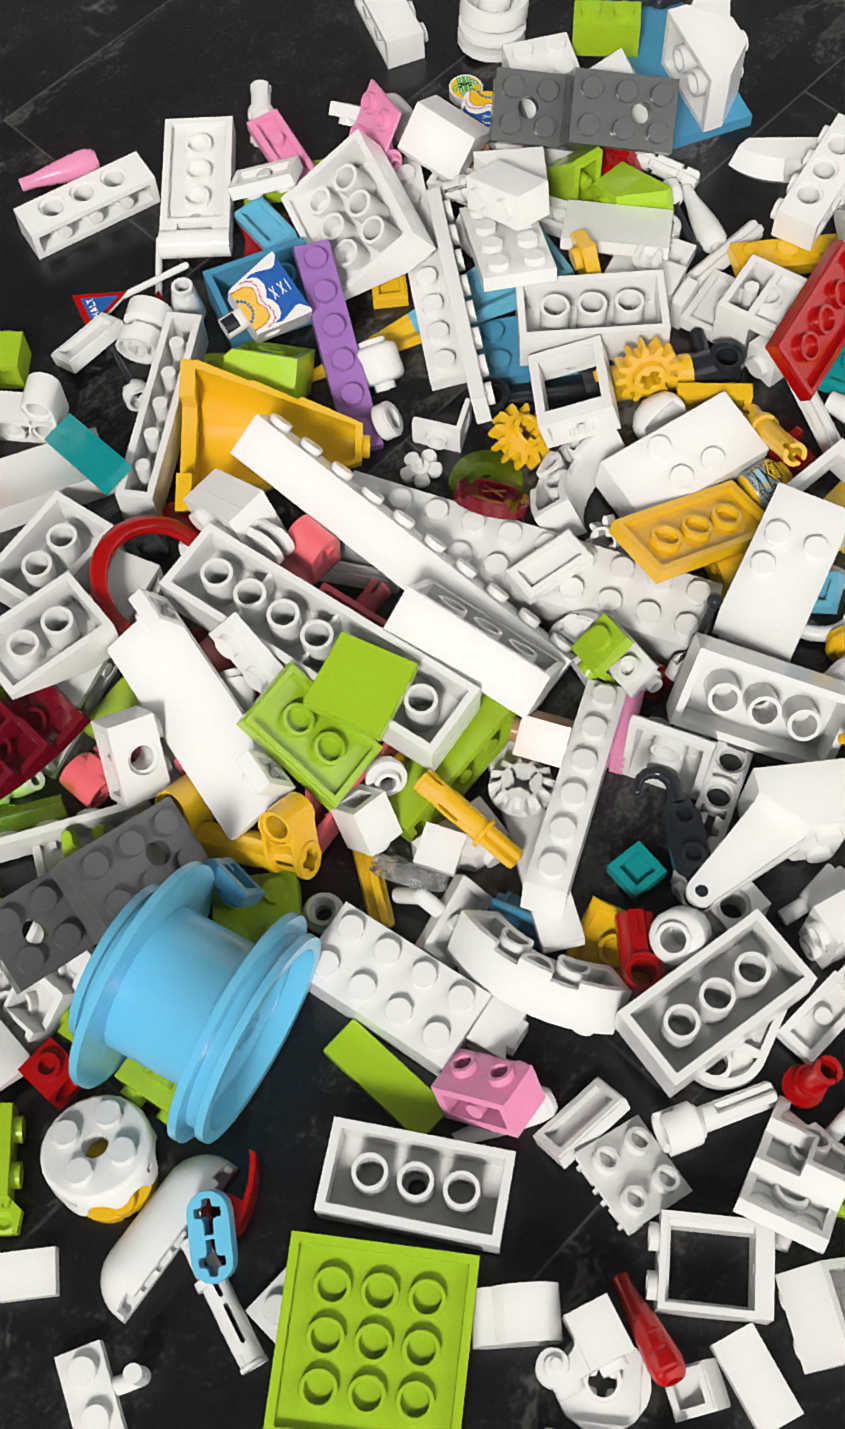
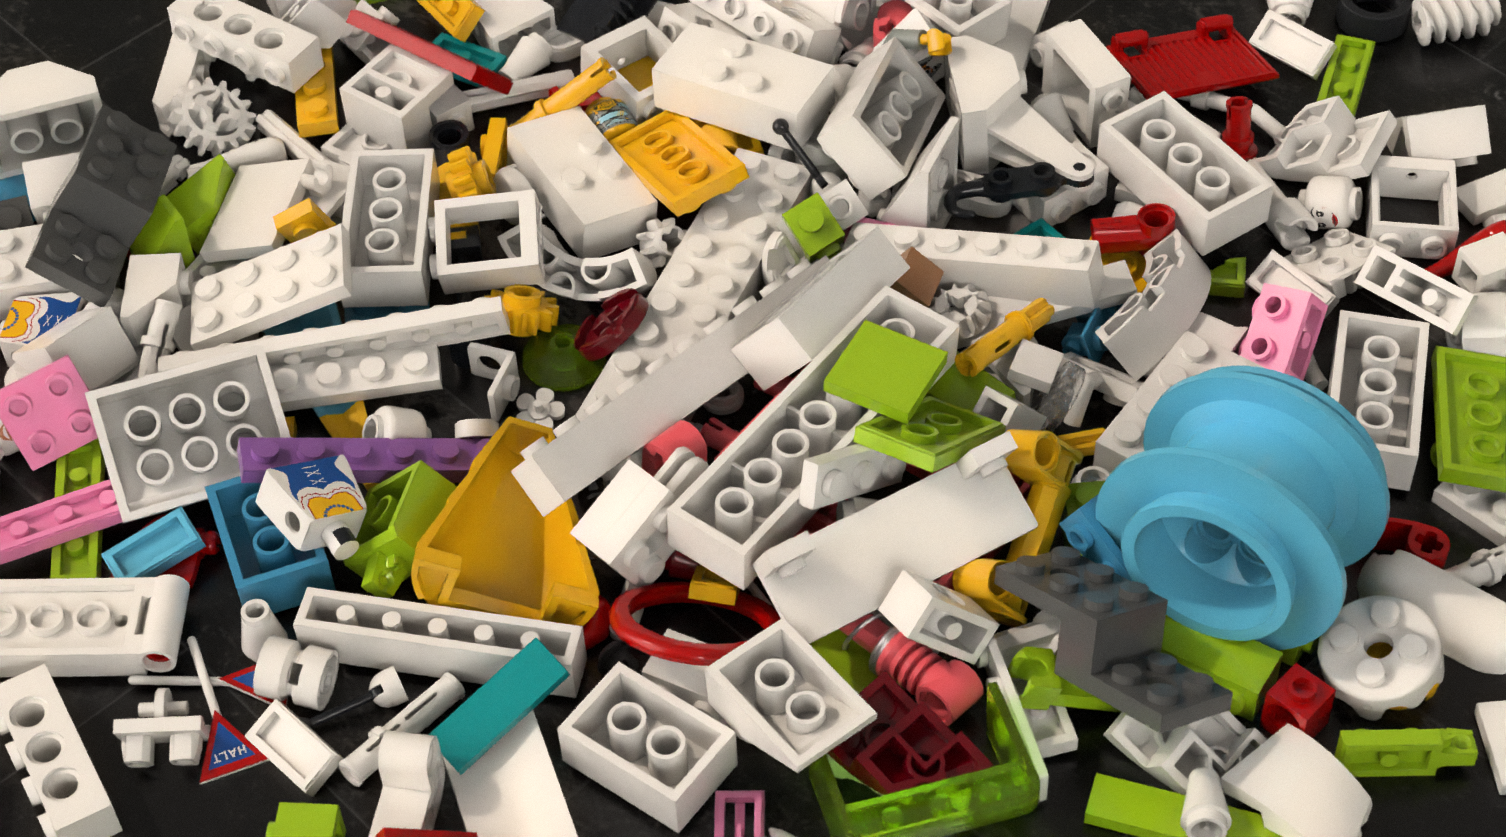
camera: 90 degrees left, 15 degrees down
(87, 398) = (412, 719): none -> white pin
(107, 261) = (182, 732): none -> white hips
(201, 1238) = (1456, 544): medium azure beam -> none
(265, 178) = (91, 531): white plate -> none
(386, 767) = (959, 394): white plate -> none
(508, 194) = (212, 272): white brick -> none
(549, 566) = (714, 265): white tile -> none
(560, 1243) = (1416, 290): none -> white slope
(607, 1060) = (1229, 278): none -> lime tile
(679, 934) = (1120, 189): white head -> none
(714, 1175) = (1332, 201): none -> white head
(726, 186) = (211, 117): none -> white gear

